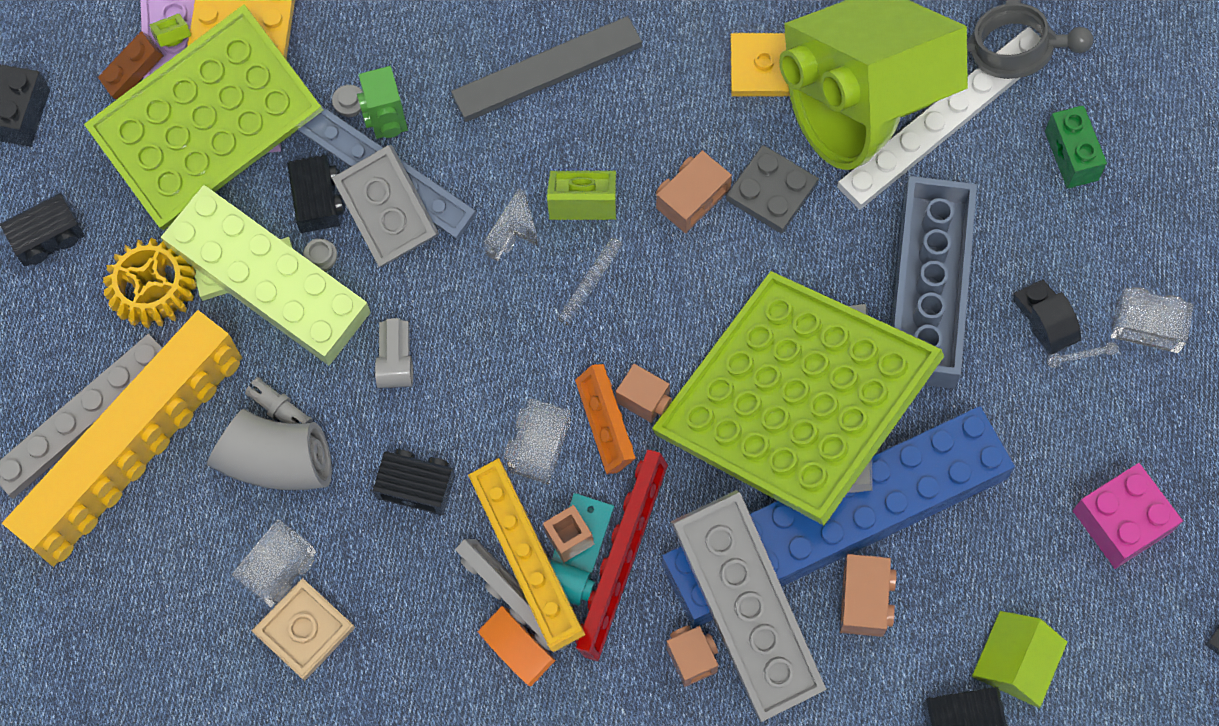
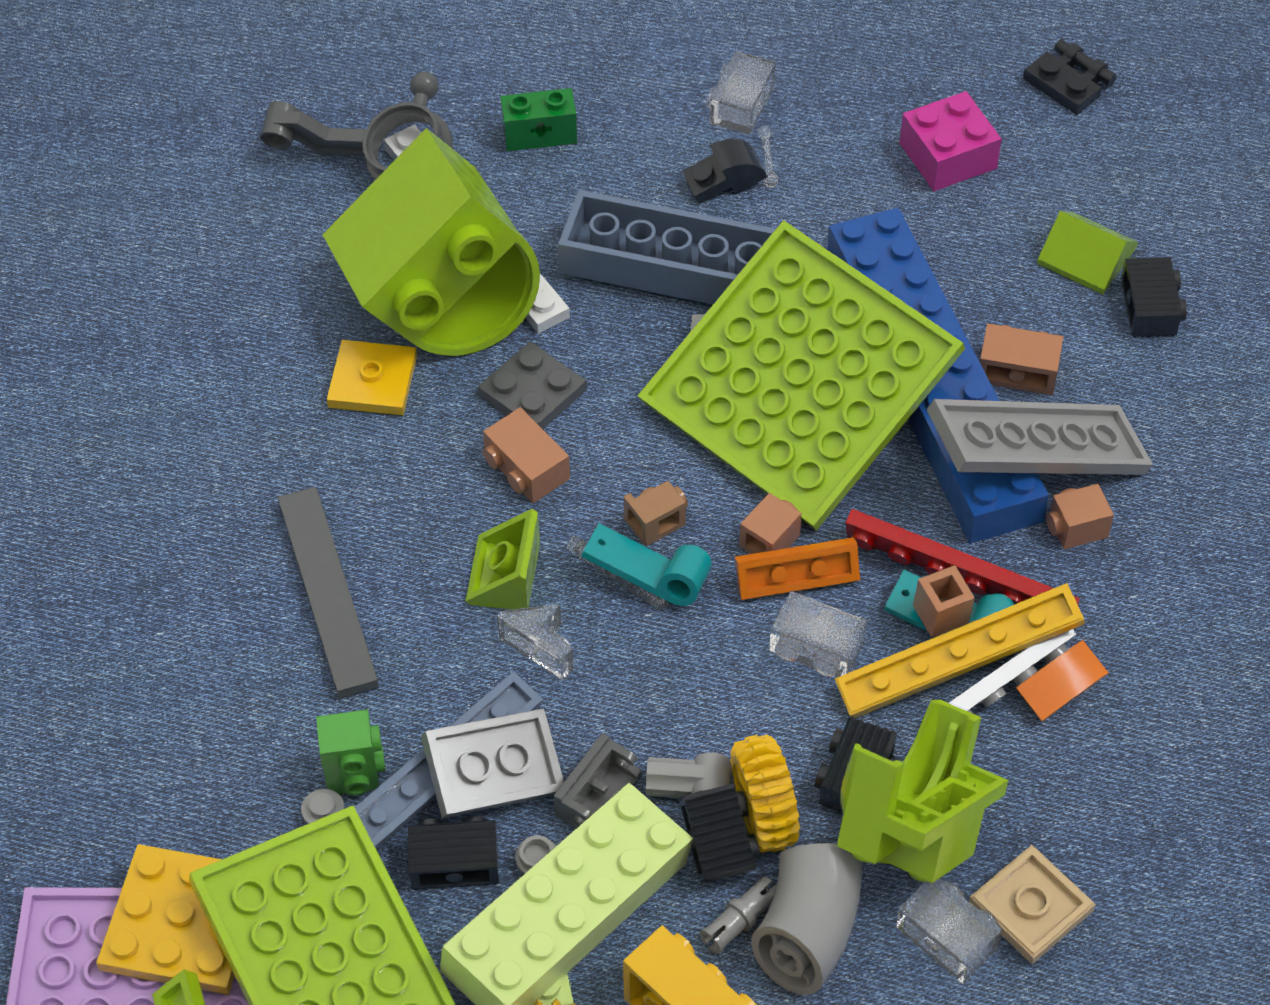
camera: 85 degrees left, 15 degrees down
(337, 377) = (719, 832): none -> black brick
(351, 524) = (923, 809): none -> lime piece
(372, 407) = (769, 792): none -> yellow gear
(383, 287) = (595, 781): none -> dark grey hinge
(590, 298) = (672, 580): none -> teal door
(649, 300) = (655, 512): none -> medium nougat brick

